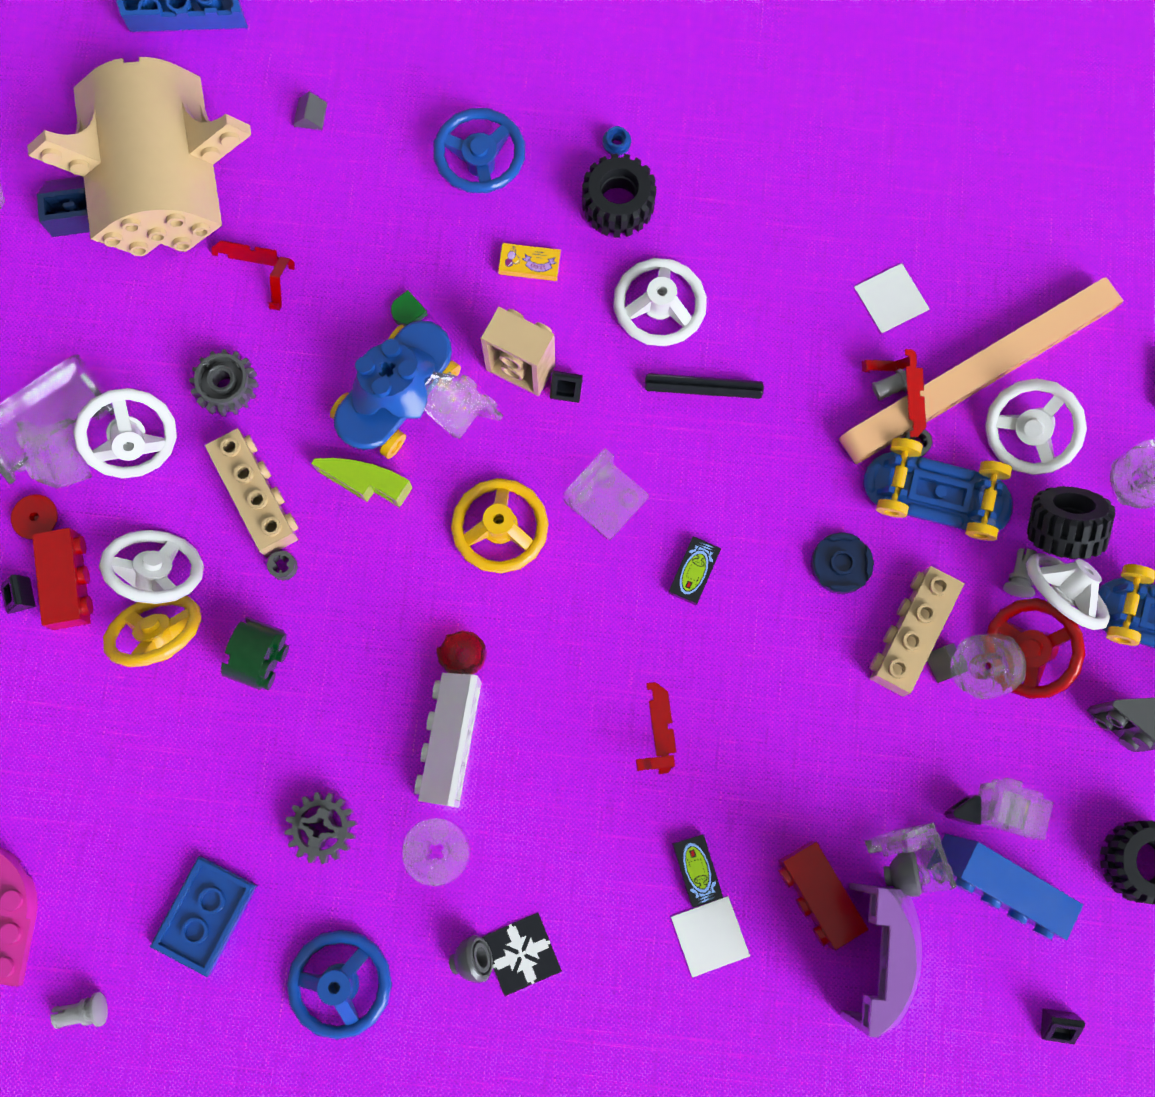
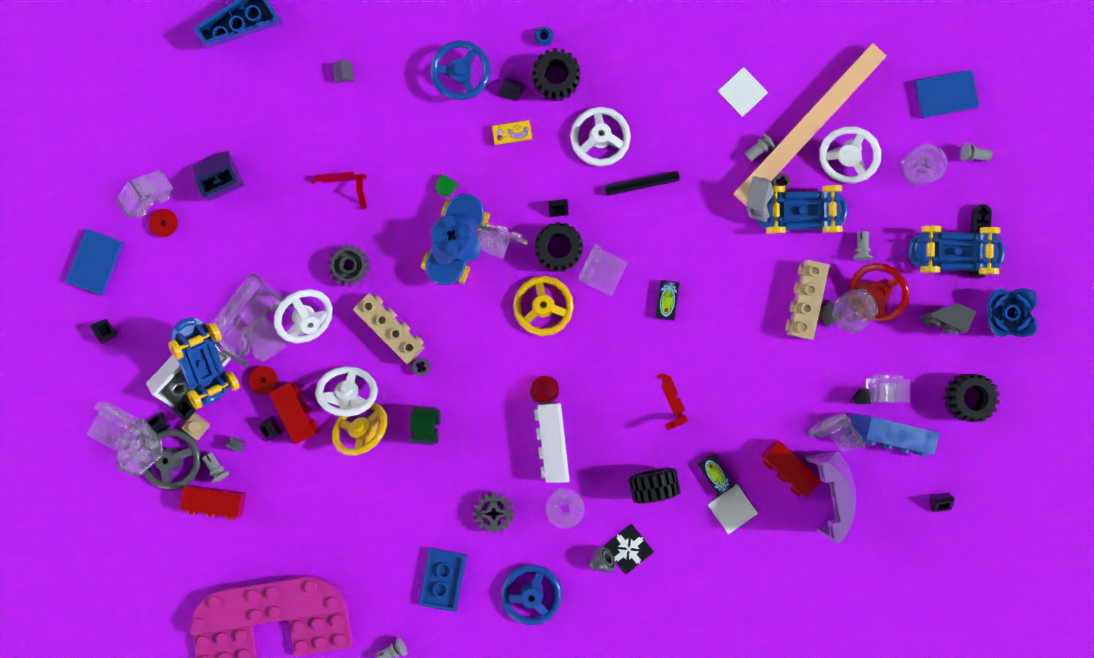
camera: 20 degrees left, 10 degrees up
(144, 155) = (253, 134): tan cylinder -> none
(364, 479) = (454, 300): lime slope -> none
(519, 350) = (525, 197): tan brick -> none
(541, 419) = (565, 231): none -> black tyre
(546, 201) = (511, 89): none -> black slope
(591, 856) = (654, 485): none -> black tyre
(842, 563) = (753, 270): dark blue tile -> none
(878, 446) = (758, 197): none -> light grey slope
(904, 874) = (834, 445): dark grey brick -> none
(915, 384) = (771, 148): red piece -> none
(1070, 522) = (884, 210): black tyre -> none
(1072, 585) = (894, 248): white piece -> none

